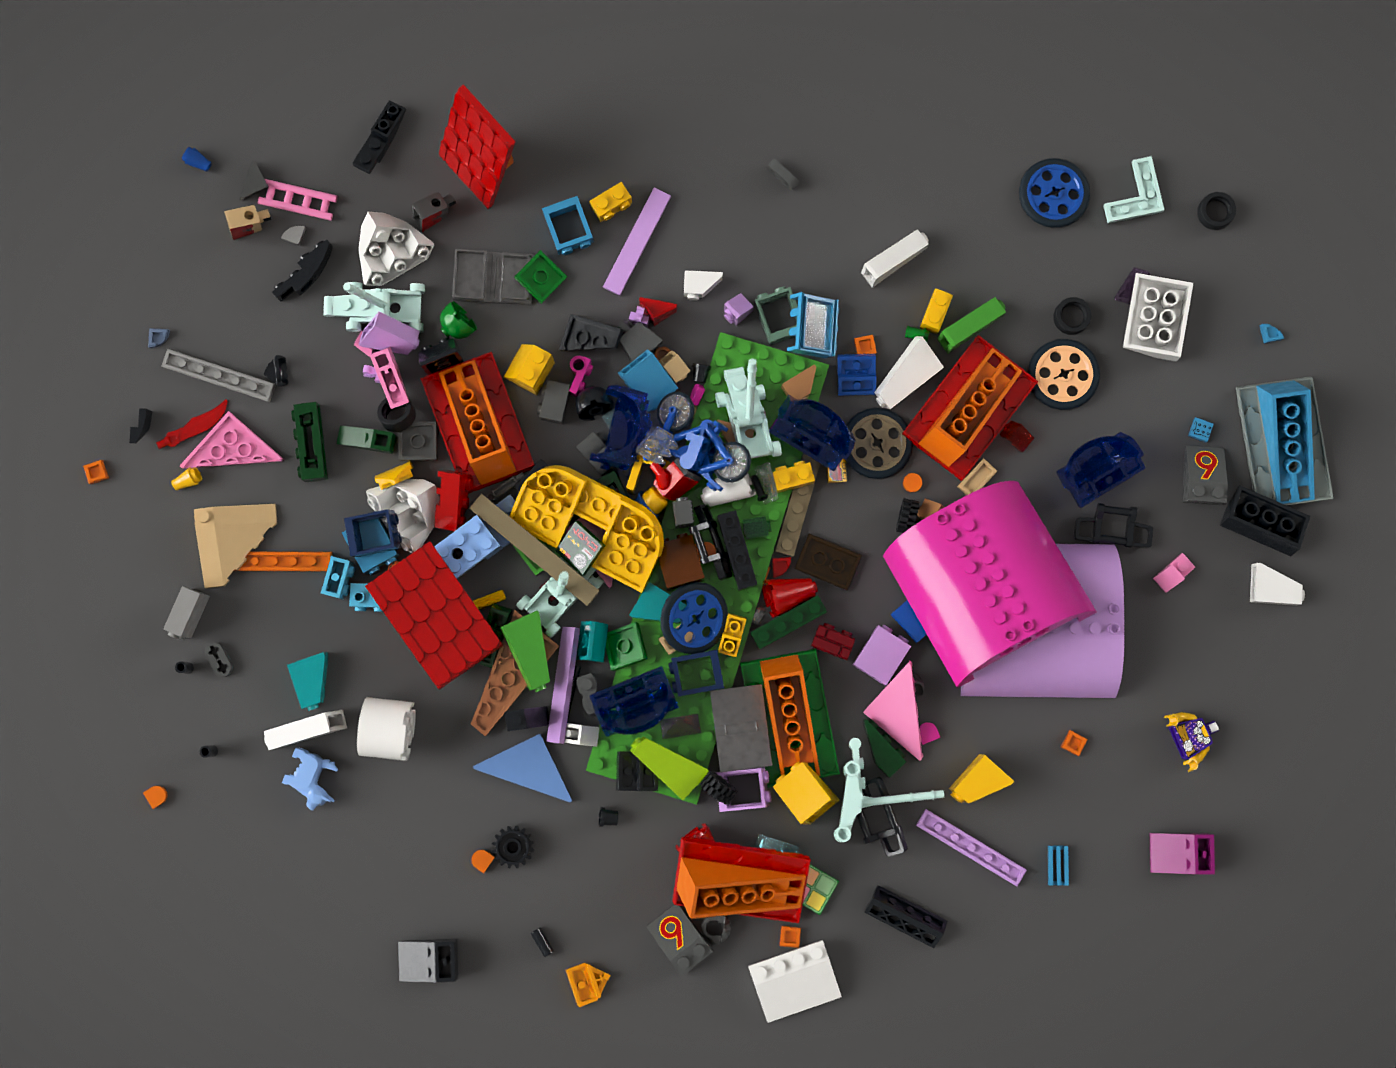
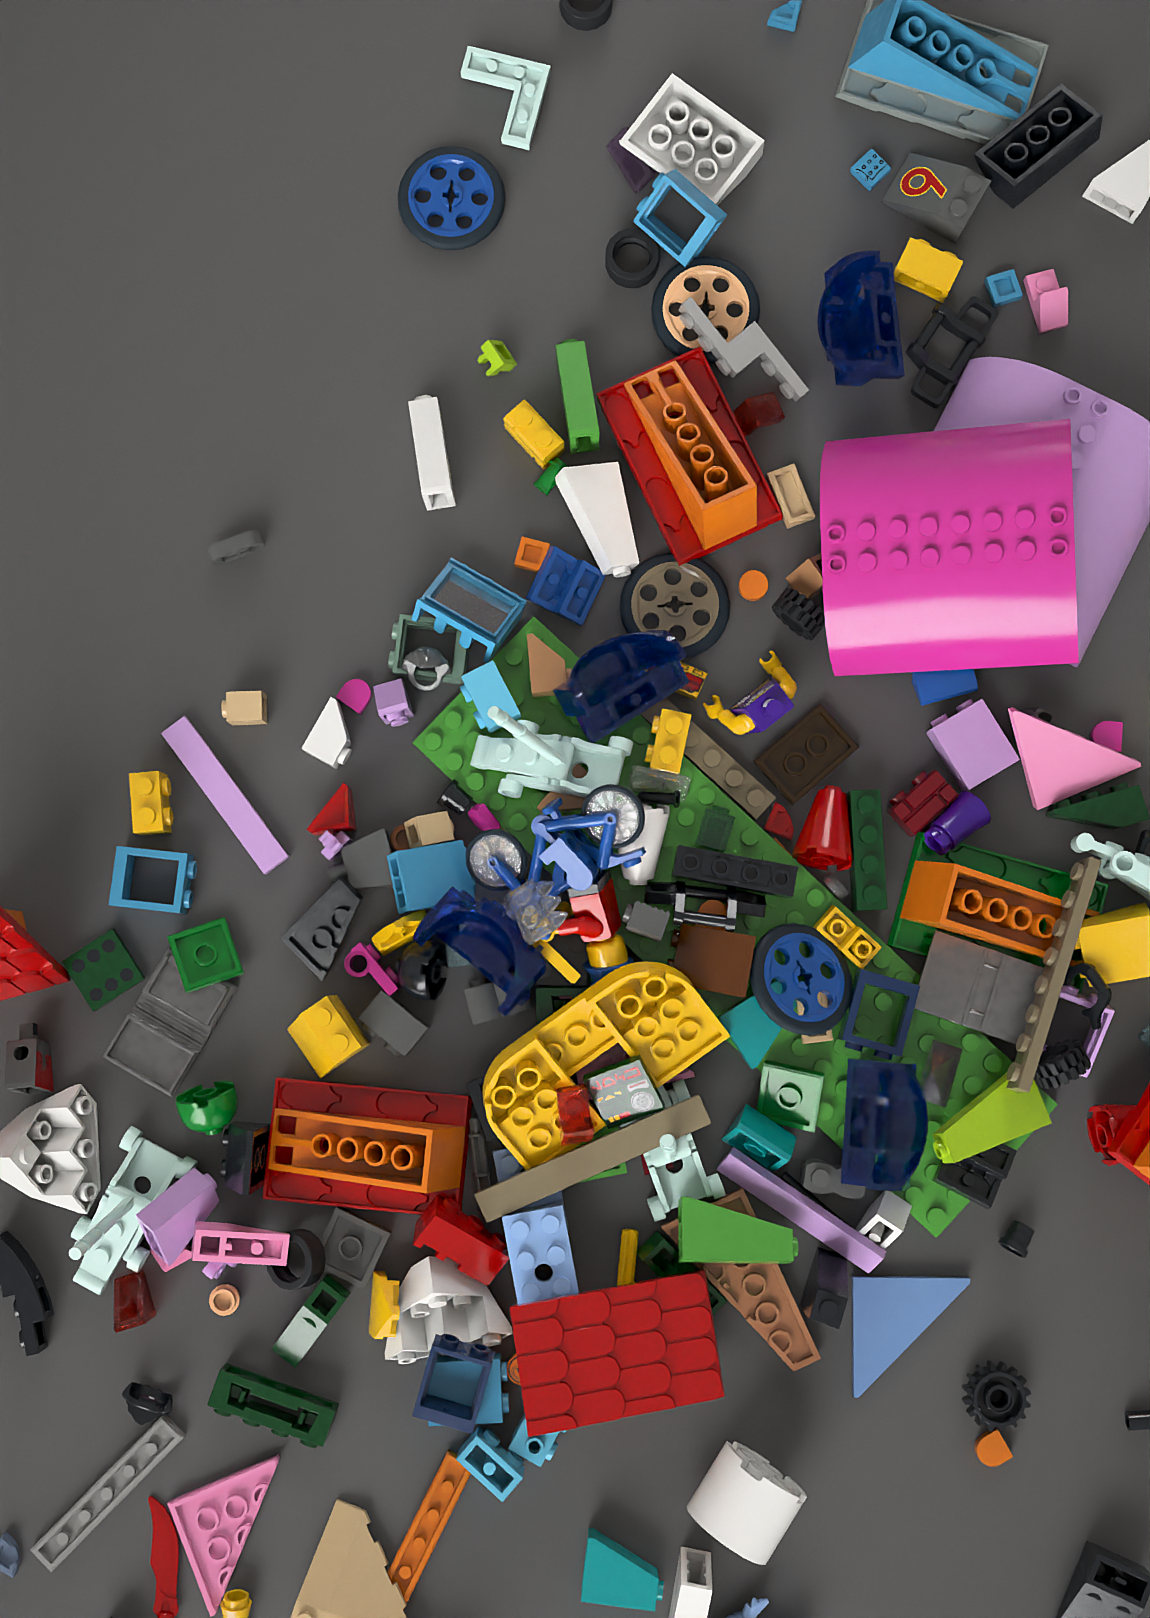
camera: 60 degrees left, 0 degrees up
(329, 334) = (132, 1301): none -> clear red slope
(354, 386) = (224, 1299): none -> light nougat plate
(503, 224) = (103, 970): none -> dark green tile
(553, 526) = (574, 1114): none -> clear red slope
(606, 377) = (398, 932): none -> yellow slope
(692, 227) = (245, 708): none -> tan brick
(732, 286) = (355, 695): none -> dark pink tile
(761, 760) = (1050, 983): none -> dark tan plate
(769, 361) = (486, 690): none -> medium azure brick
(771, 314) = (426, 658): none -> dark grey piece
(773, 771) = (1103, 991): none -> black helmet
(830, 666) = (957, 823): none -> dark purple plant
(844, 521) = (760, 706): none -> torso
(972, 267) = (498, 355): none -> lime tile
(1047, 407) = (742, 350): none -> light grey bracket
(1095, 327) = (664, 235): none -> dark azure window
(1154, 491) = (927, 269): none -> yellow brick
(1168, 543) = (1003, 288): none -> dark azure tile

